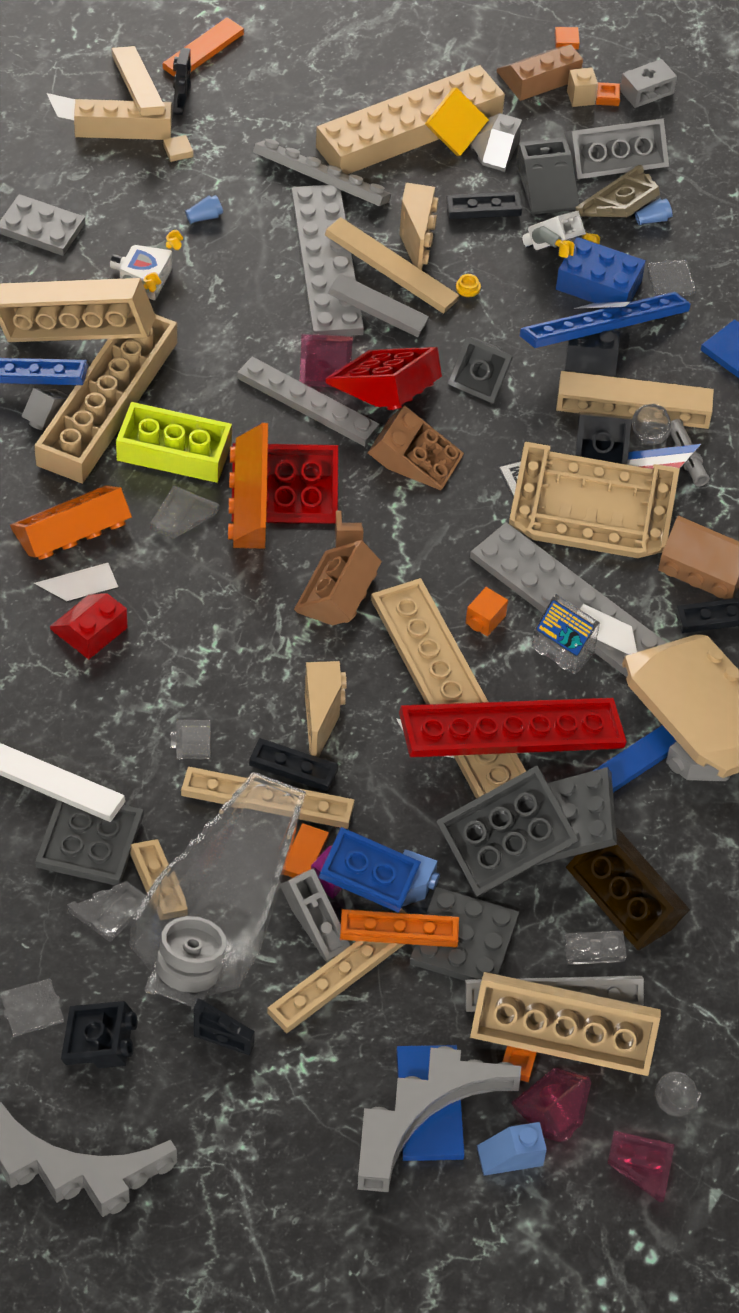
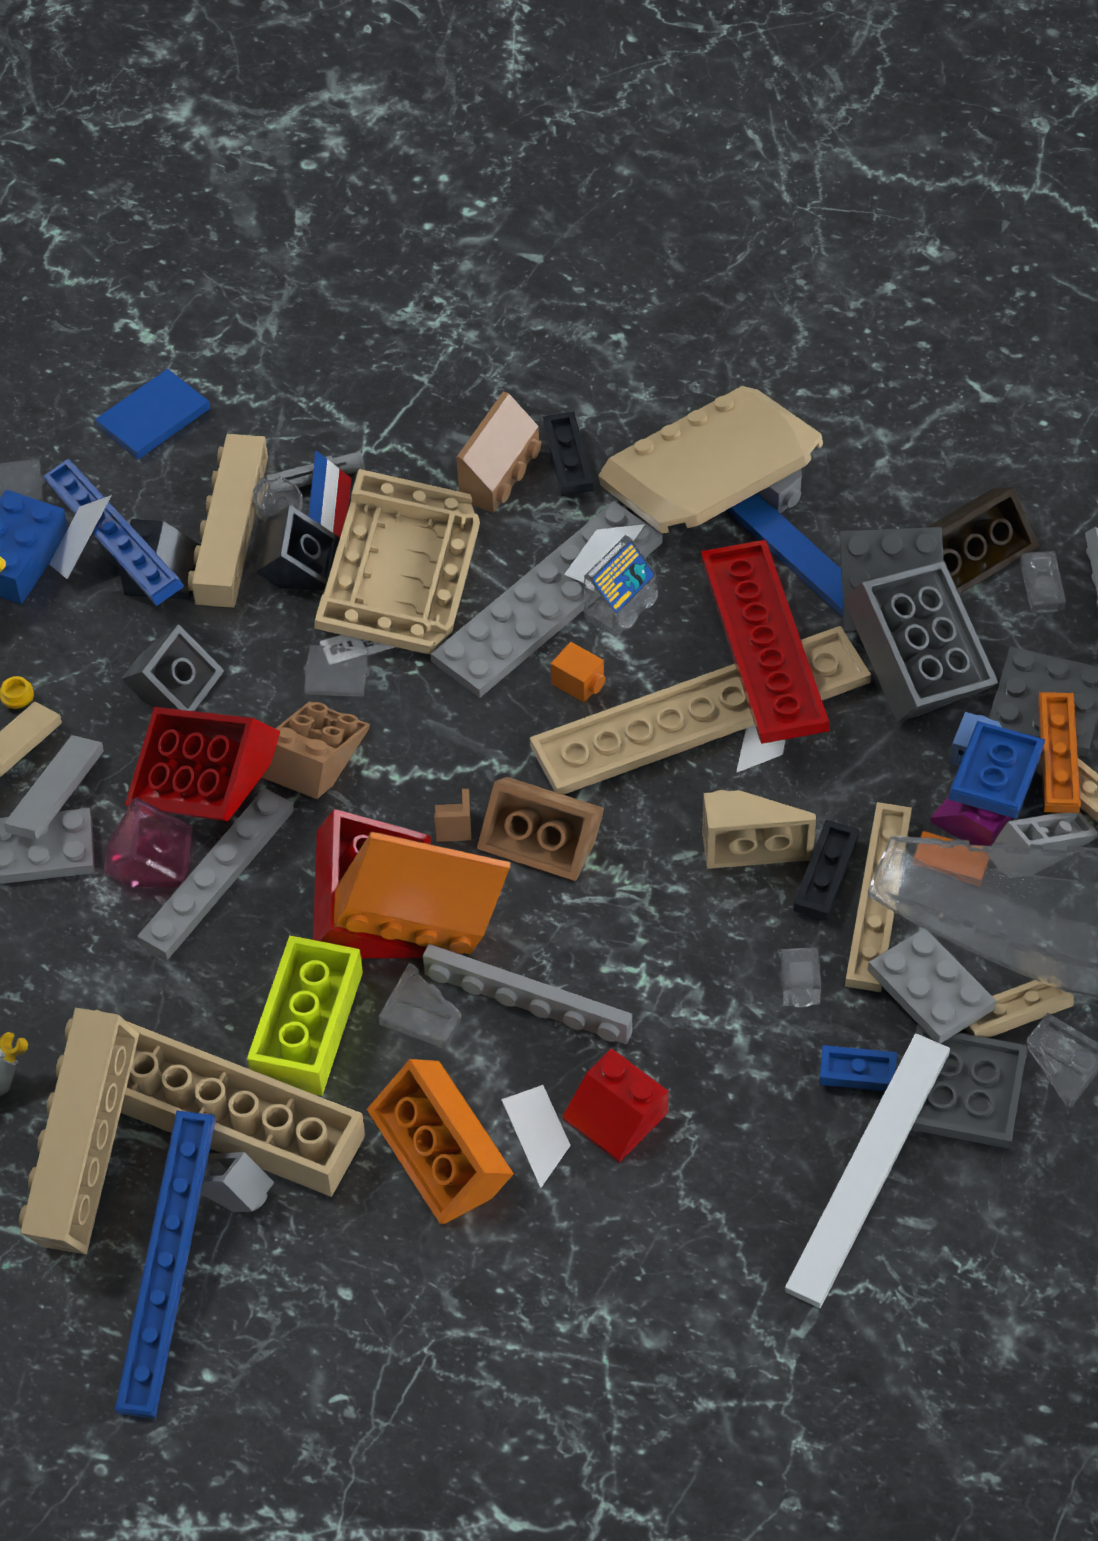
camera: 85 degrees left, 0 degrees up
(112, 767) = (857, 1068): none -> blue plate
(171, 817) = (931, 986): none -> light grey plate
(190, 567) = (527, 994): none -> light grey plate
(493, 469) = (336, 670): none -> clear piece

